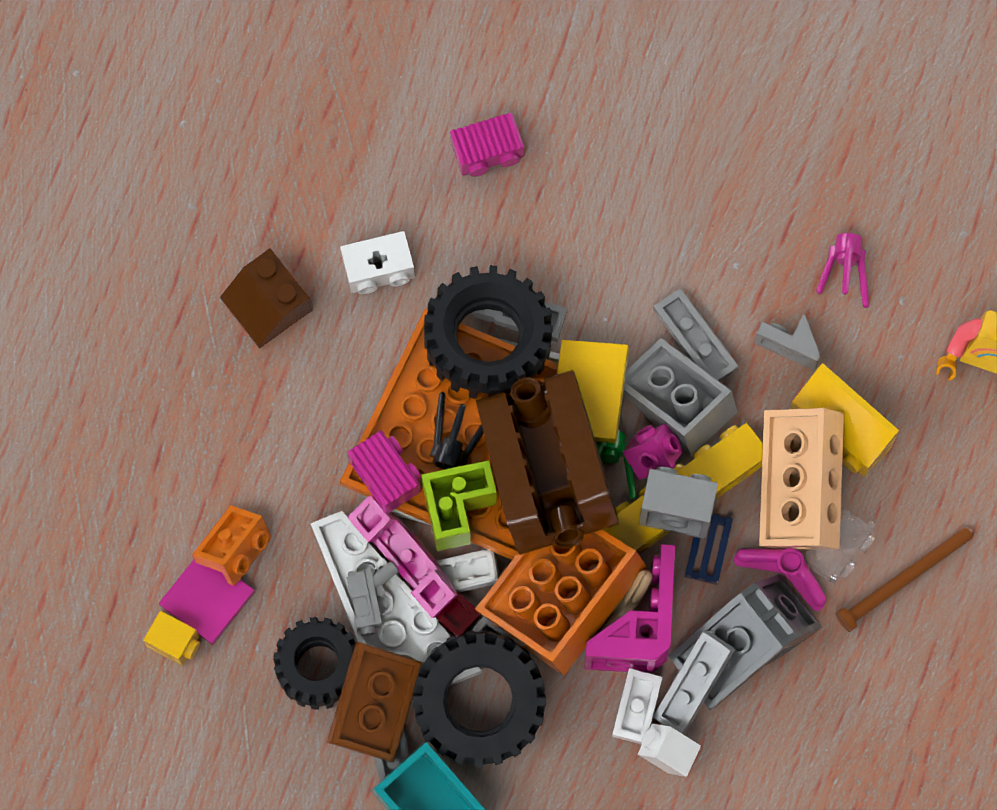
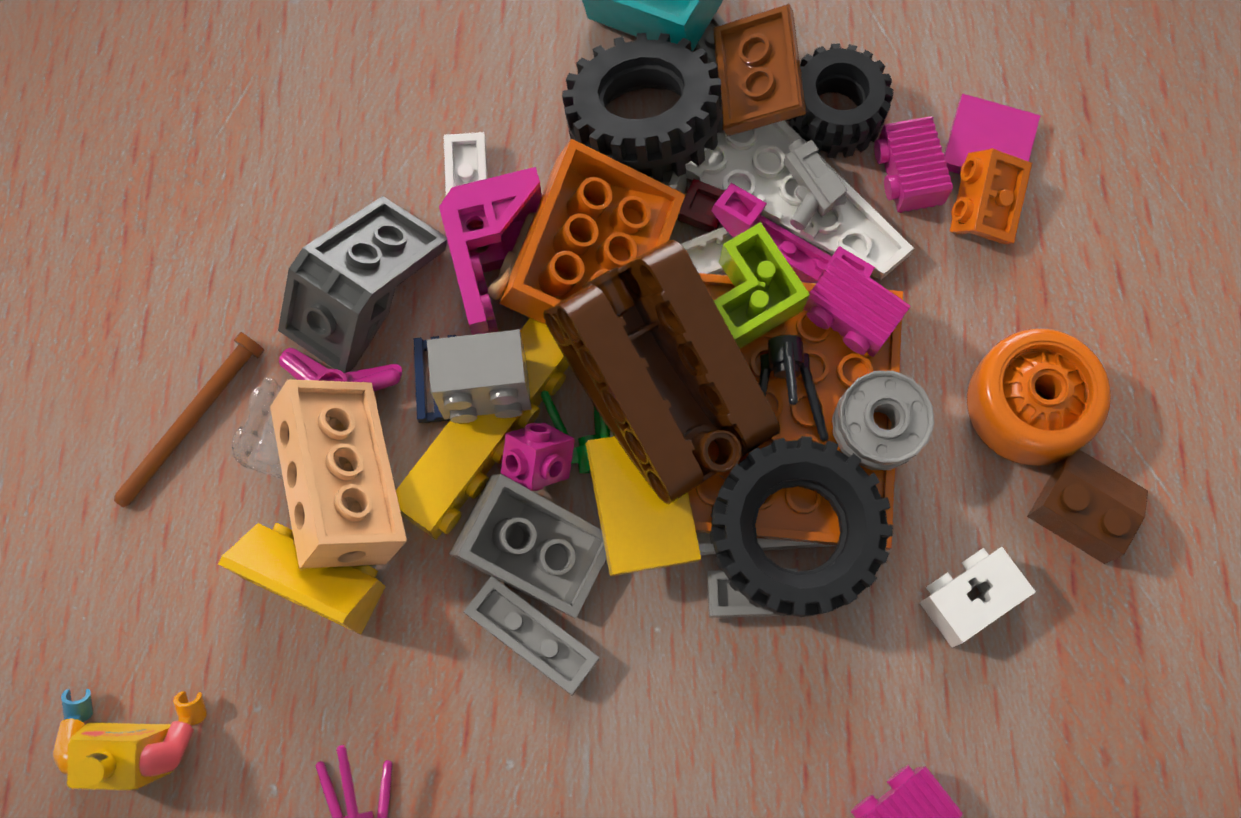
camera: 160 degrees right, 0 degrees up
(172, 638) = (1008, 79): yellow brick -> none
(276, 402) = (1019, 421): none -> orange wheel
(279, 593) = (913, 164): none -> dark pink brick
(395, 367) = (897, 398): none -> light grey wheel
(669, 749) = (414, 131): white brick -> none
(694, 682) = (404, 205): light grey plate -> none
(797, 348) = (392, 668): light grey slope -> none

